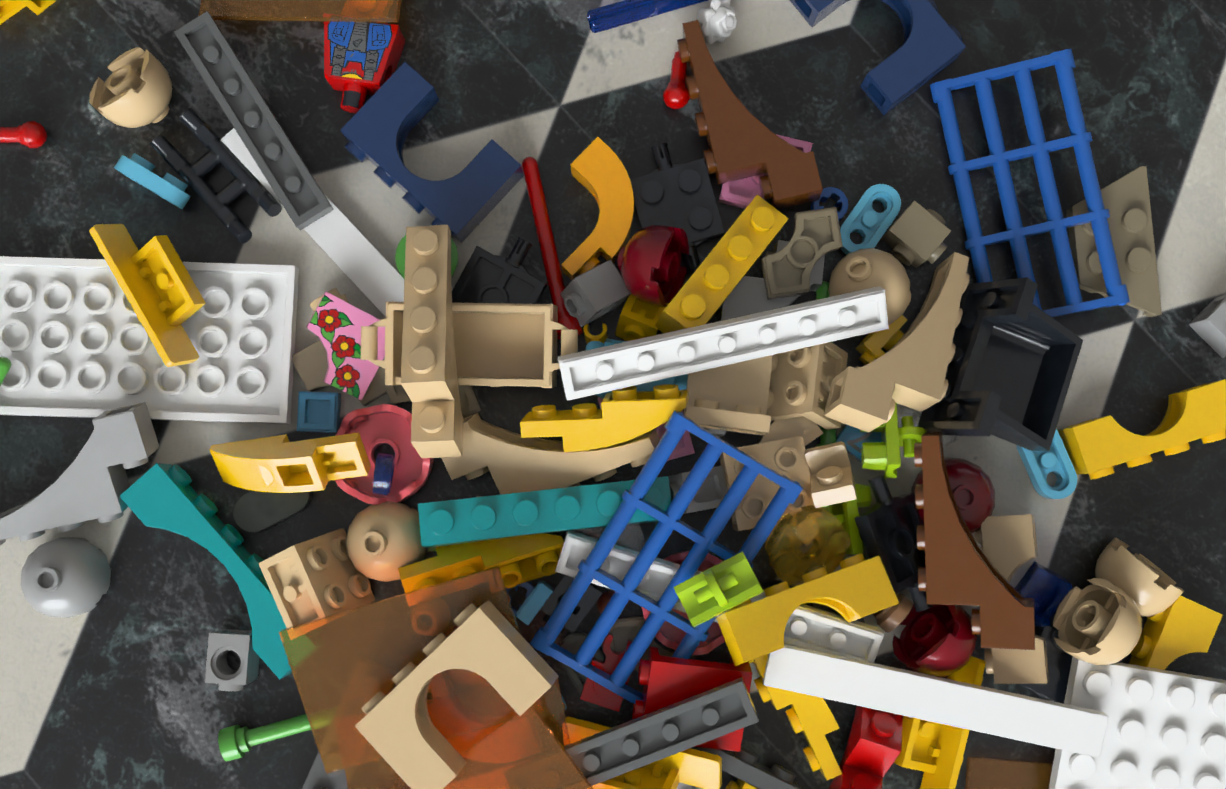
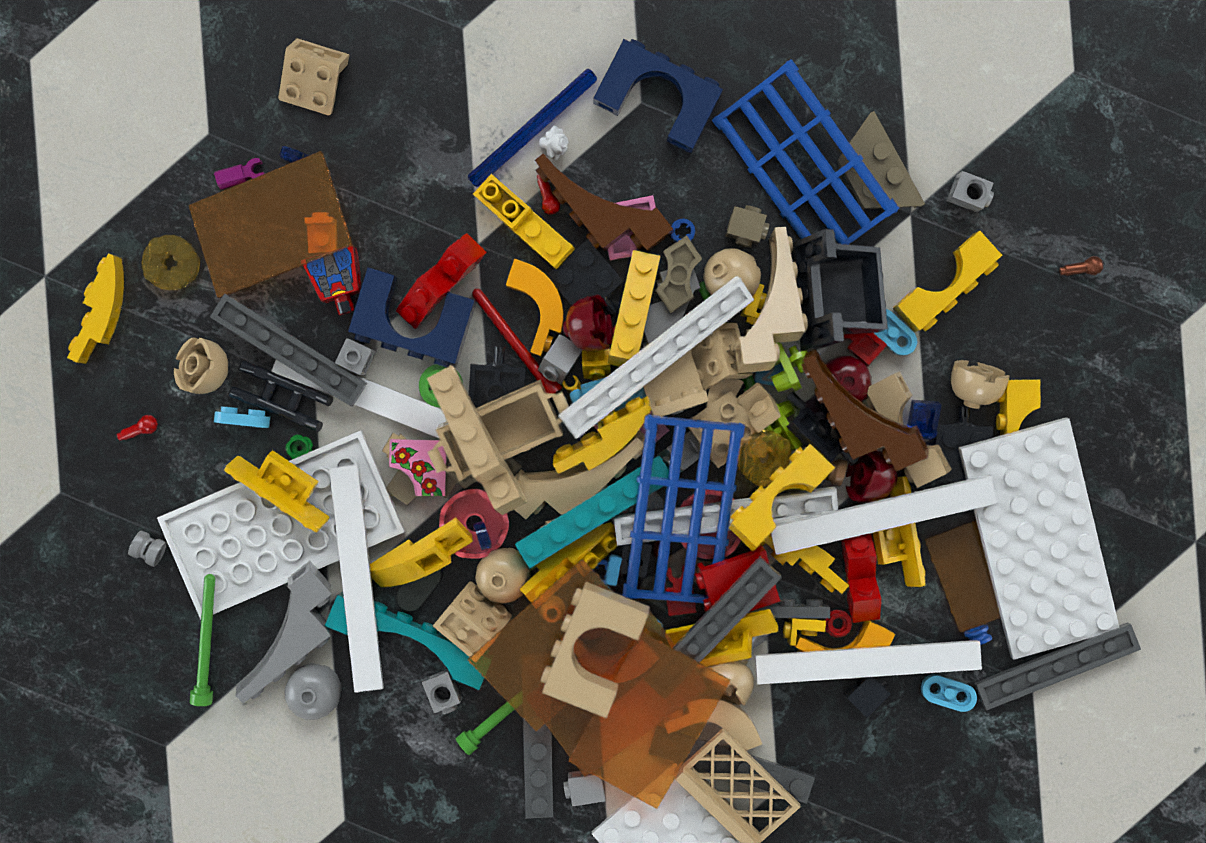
camera: 25 degrees left, 5 degrees up
(189, 456) = (356, 578): none -> white tile
(206, 243) = (298, 440): none -> green plate
(318, 412) = (419, 515): dark azure tile -> none
(335, 169) = (355, 357): none -> light grey brick
(470, 124) = (440, 279): none -> red arch
(631, 98) = (523, 221): none -> yellow slope
(718, 589) = (721, 510): lime hips -> none
(868, 222) = (712, 230): medium azure plate -> none
(1002, 461) = (865, 346): none -> red plate
(1098, 623) = (964, 421): tan cylinder -> none

